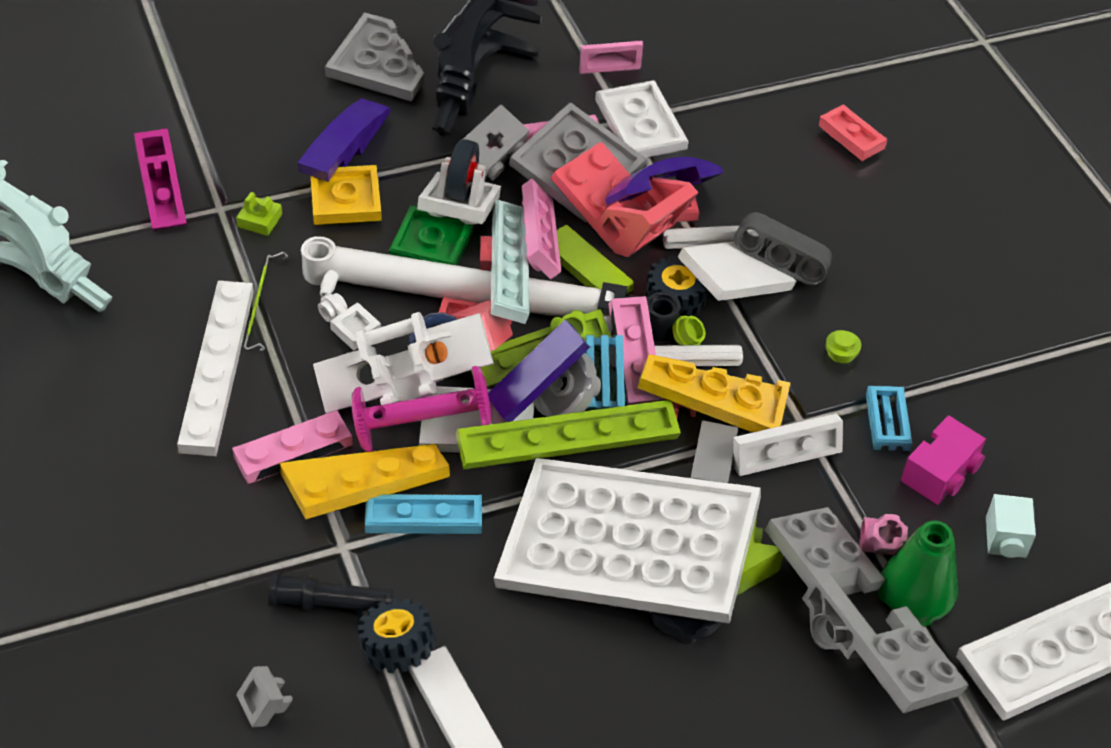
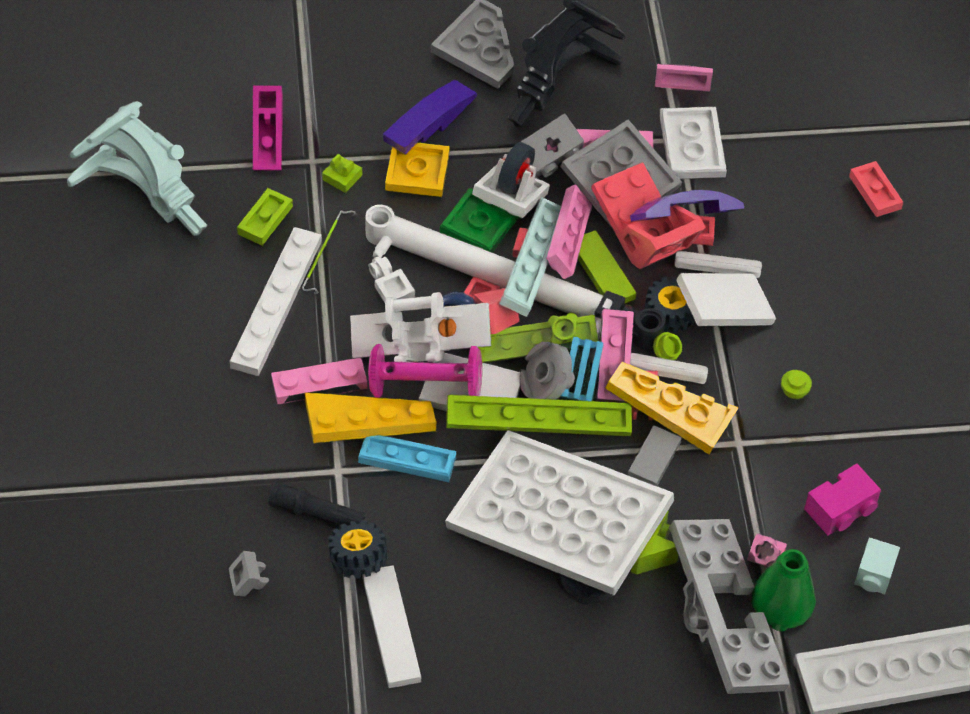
camera: 15 degrees right, 5 degrees up
(180, 275) = (265, 216): none -> lime plate
(537, 371) = (525, 359): tile -> none
(788, 444) = (717, 460): white plate -> none
(790, 263) = (772, 288): dark grey beam -> none
(889, 439) = (807, 473): medium azure tile -> none

